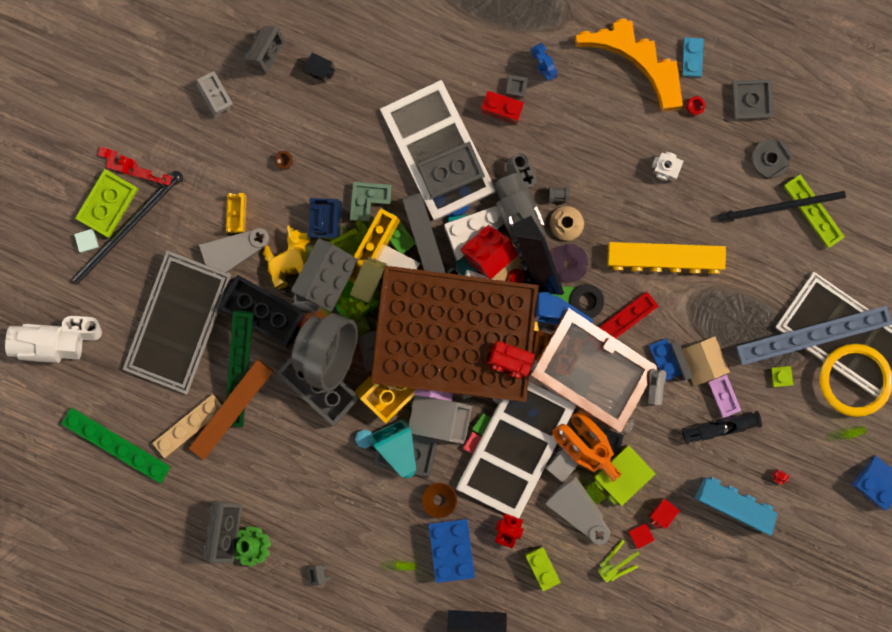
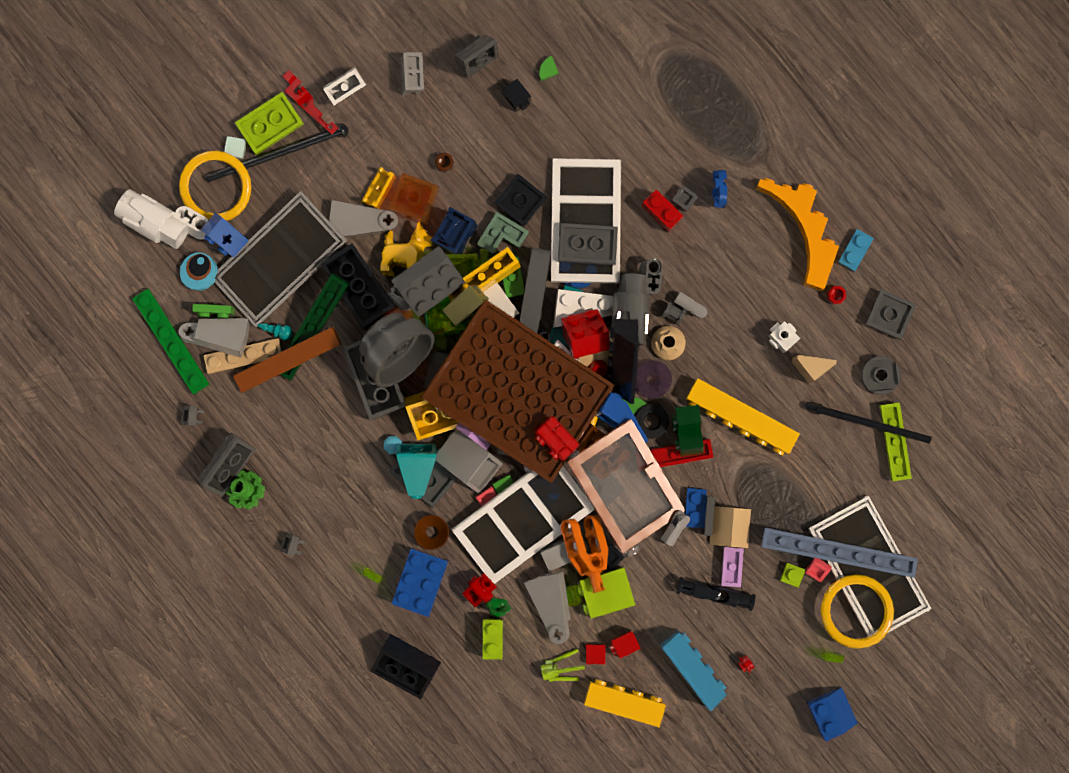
camera: 25 degrees right, 0 degrees up
(86, 254) = (220, 156): none -> yellow wedge
(108, 320) = (233, 239): none -> blue brick
(109, 369) = (198, 271): none -> tile
(148, 395) = (220, 310): none -> bright green plate
(157, 417) = (218, 334): none -> light grey piece
(158, 136) = (344, 86): none -> white brick
(167, 504) = (189, 416): none -> dark grey tile
(214, 386) = (284, 332): none -> teal bar
(273, 206) = (414, 198): none -> clear orange brick
(335, 30) = (548, 69): none -> bright green tile
(370, 160) = (521, 200): none -> black plate
(533, 537) = (498, 607): none -> green plant
(570, 180) = (691, 305): none -> light grey bar
(622, 289) = (687, 425): none -> dark green brick
(690, 567) = (624, 703): none -> yellow brick
(707, 181) = (812, 367): none -> tan slope
(802, 360) = (818, 569): none -> coral tile

